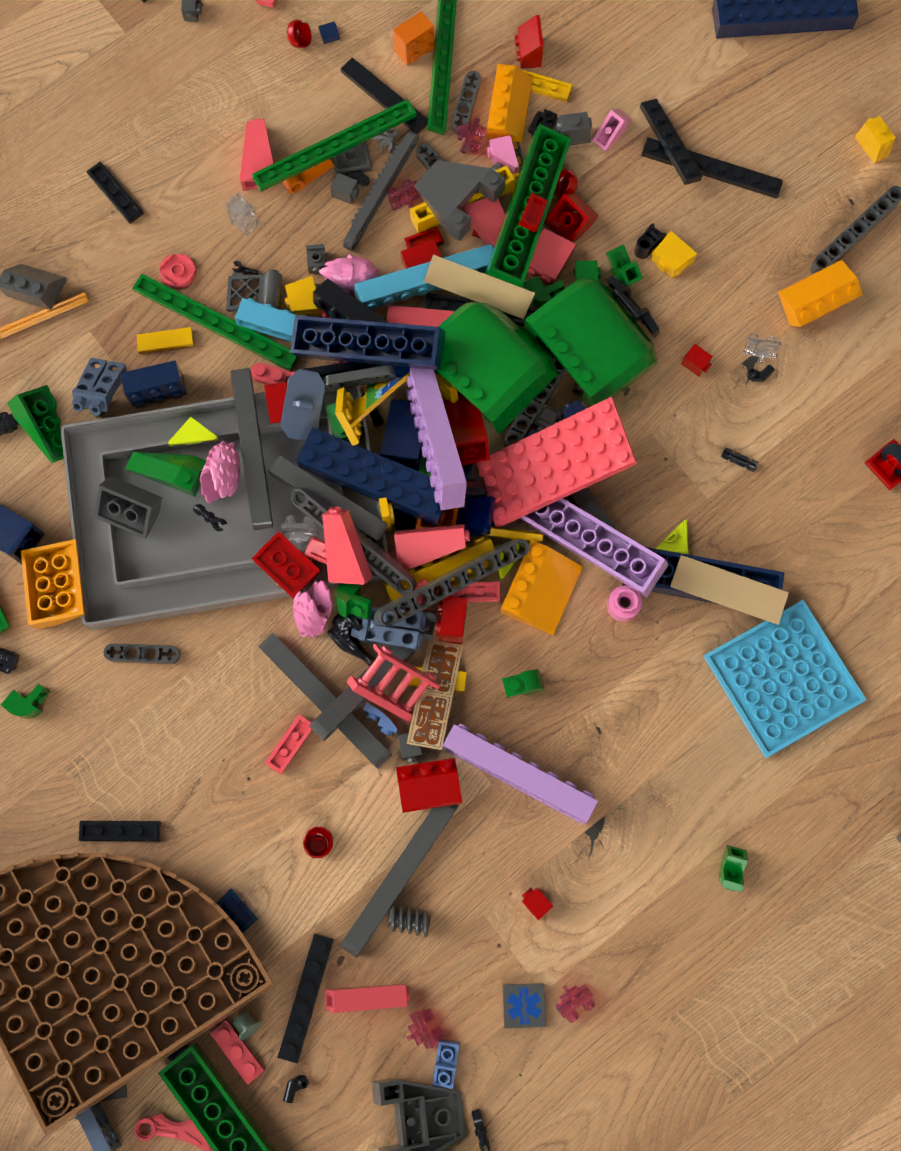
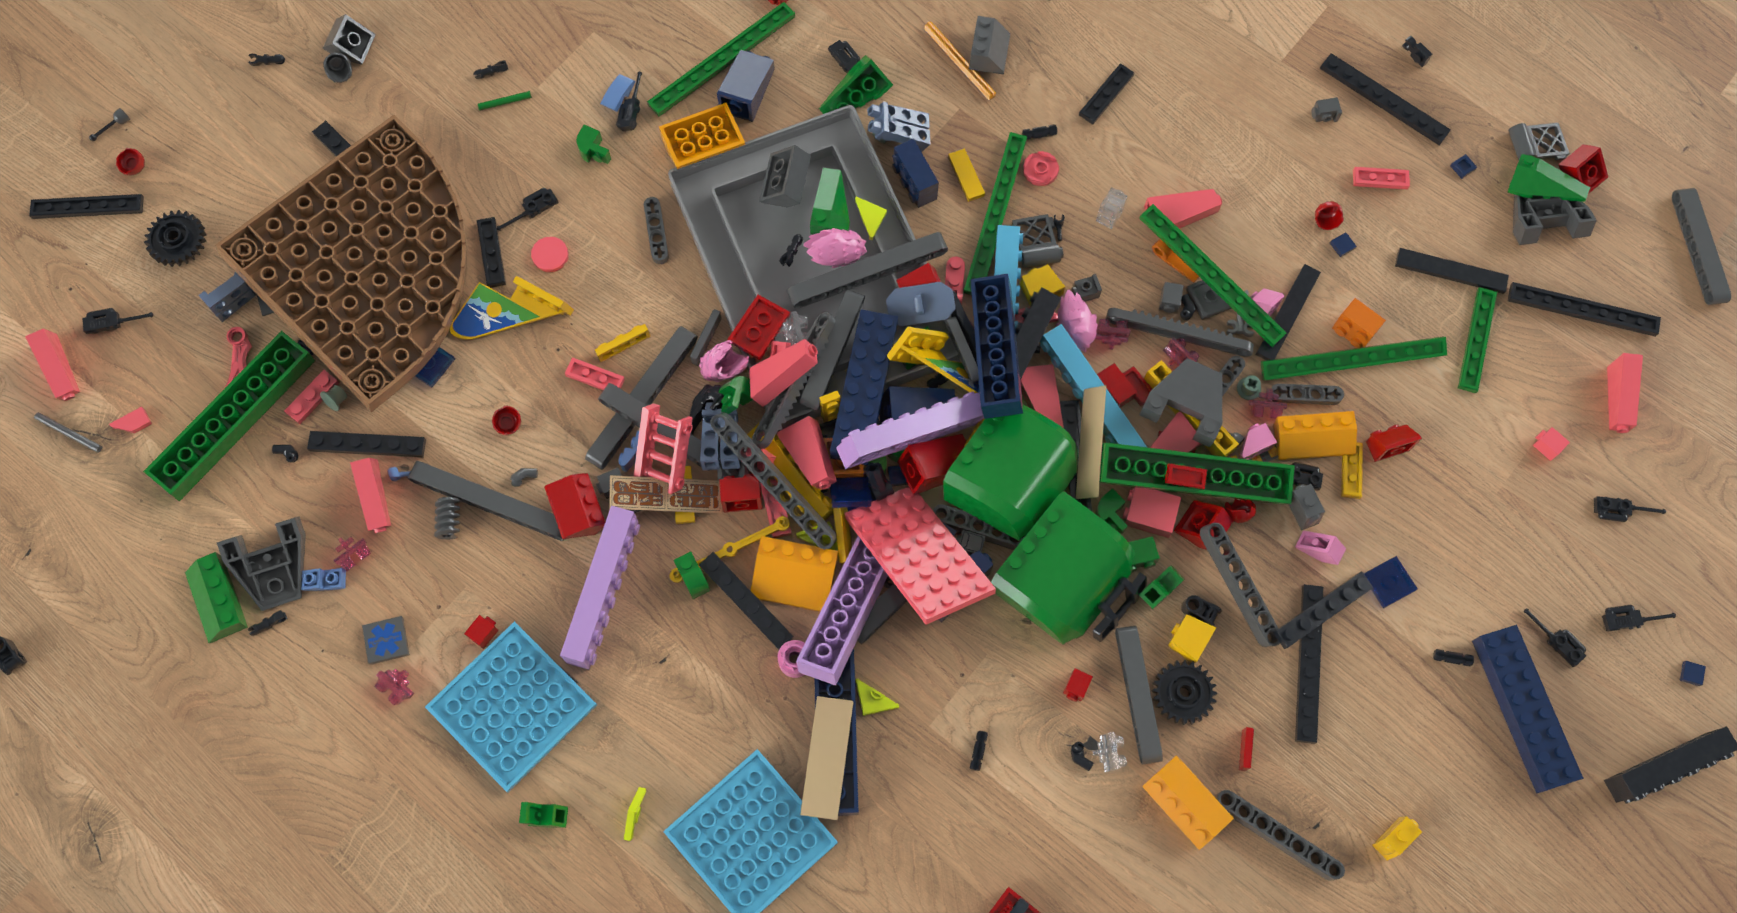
camera: 75 degrees right, 5 degrees down
(80, 775) = (534, 205): none -> black piece
(138, 262) = (1039, 132): none -> black axle
(139, 768) = (549, 254): none -> coral tile
(192, 839) = (492, 312): none -> piece
(259, 709) = (622, 342): none -> yellow plate
(275, 624) = (705, 337): none -> dark grey tile
(347, 972) = (395, 475): none -> medium blue hand
(371, 104) = (1267, 300): none -> bright pink slope
(371, 247) = (1112, 335): none -> clear pink hips
(378, 838) = (521, 474): none -> dark grey arm
(448, 147) = (1249, 387): none -> sand green piece
(490, 588) = (781, 524): none -> yellow piece
(558, 638) = (746, 600): none -> black plate
(617, 886) = (511, 706): none -> medium azure plate
(636, 199) = (1232, 580): none -> dark grey beam
(653, 84) = (1390, 582): none -> clear blue tile
(714, 311) = (1139, 695): none -> dark grey beam
(720, 286) = (1174, 703): none -> black gear
(729, 55) = (1453, 657): none -> black axle
(743, 781) = (633, 813): none -> neon yellow tile
(779, 236) = (1246, 749): none -> red tile

